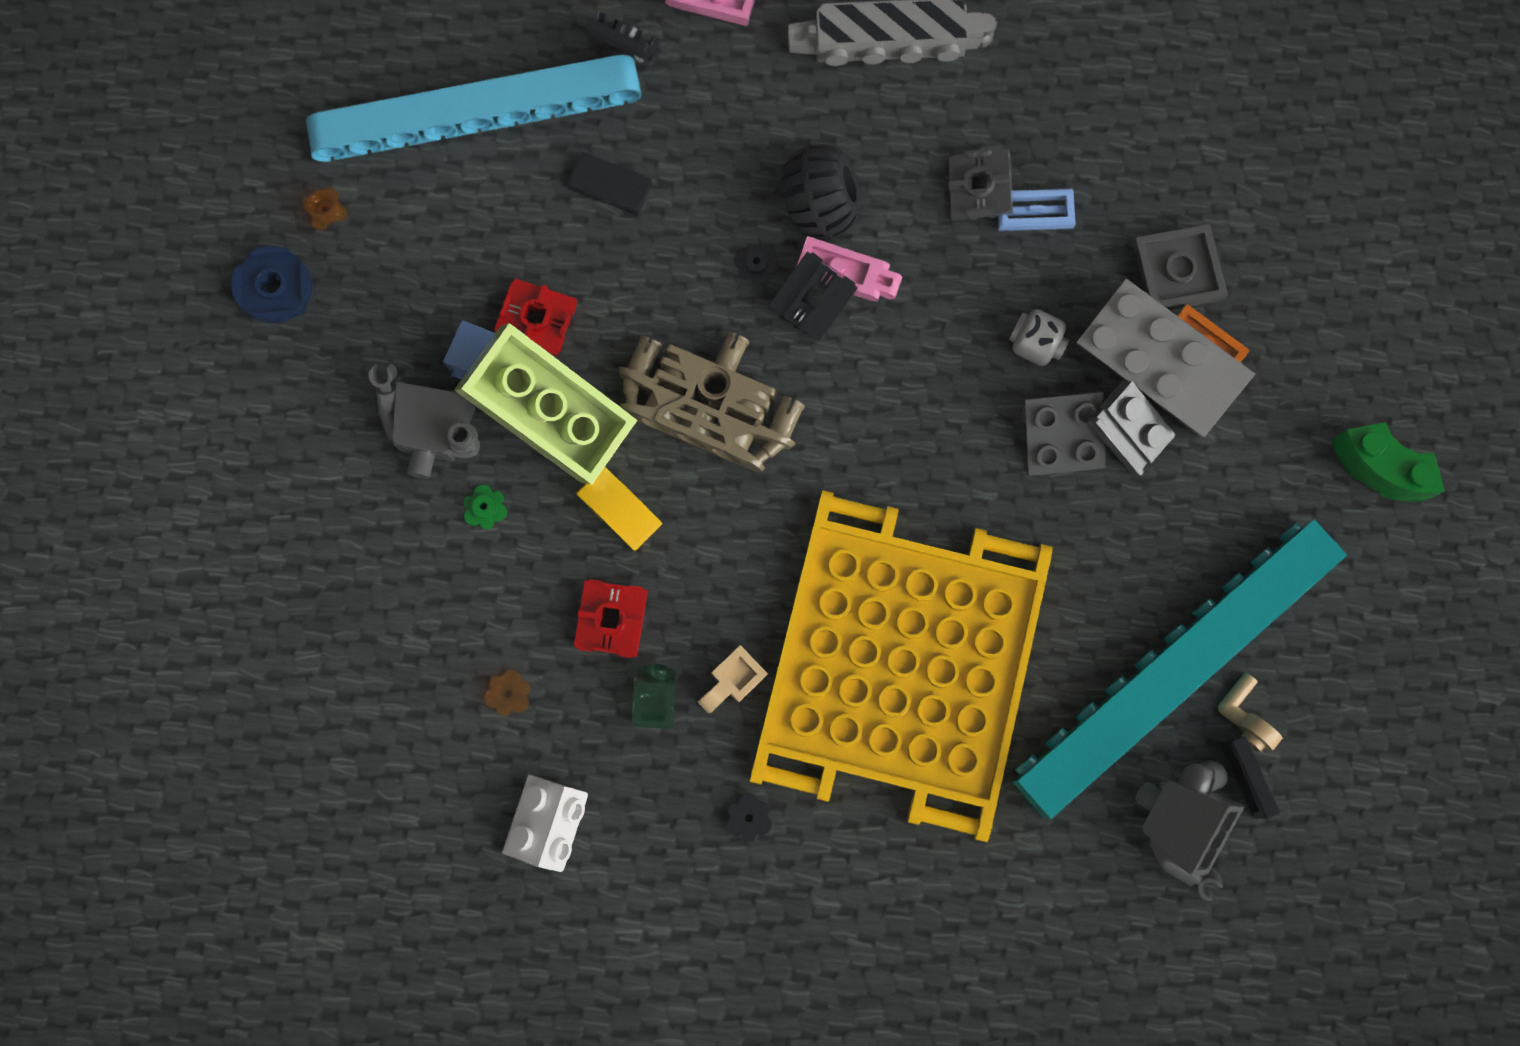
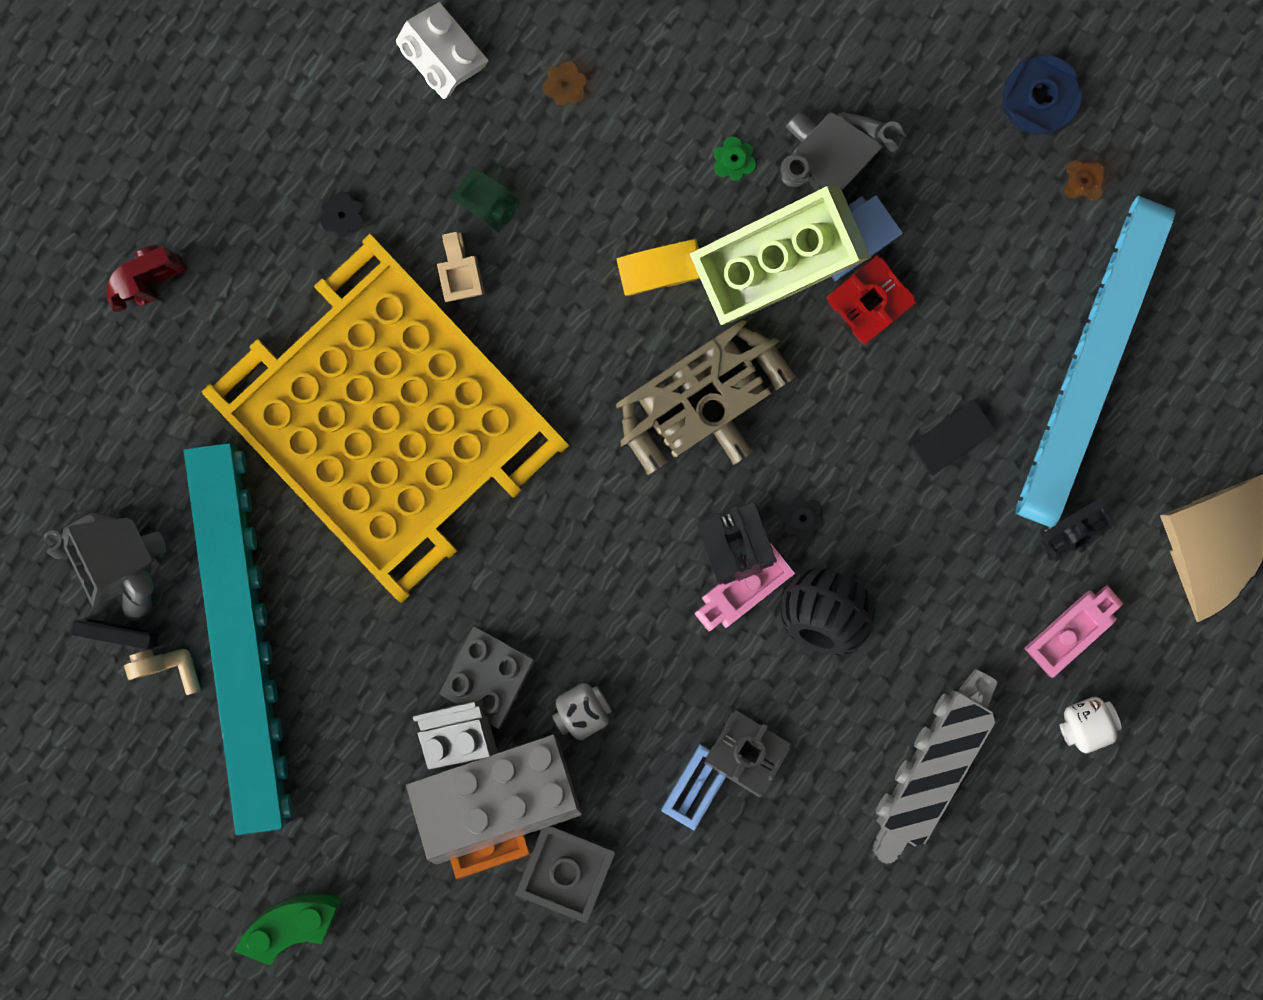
camera: 125 degrees right, 10 degrees up
(631, 606) = (572, 181): red piece -> none
(933, 963) = (135, 278): none -> dark red slope

